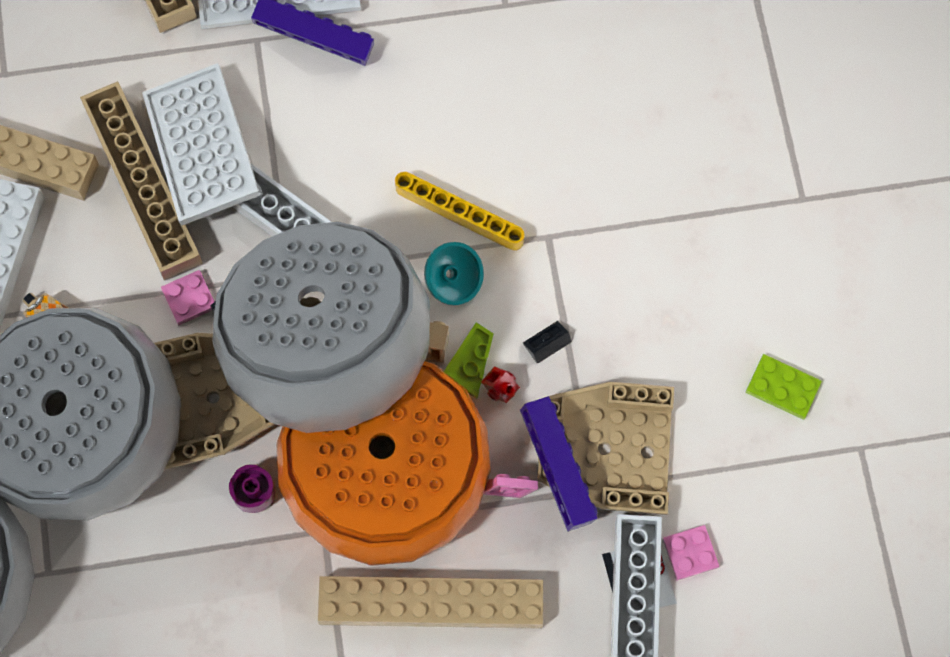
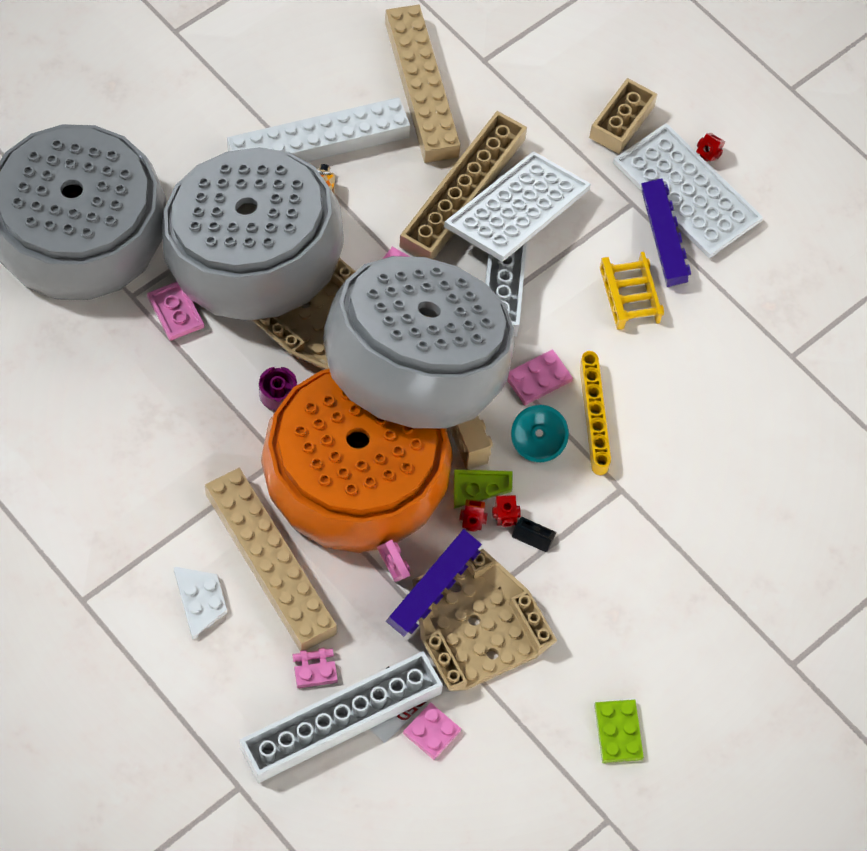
camera: 55 degrees right, 10 degrees down
(96, 540) = (175, 311): none -> bright pink plate
(351, 118) = (617, 301): none -> yellow fence
(392, 225) = (538, 377): none -> bright pink plate
(513, 352) = (506, 511): none -> red brick
(573, 626) = (315, 674): none -> bright pink plate

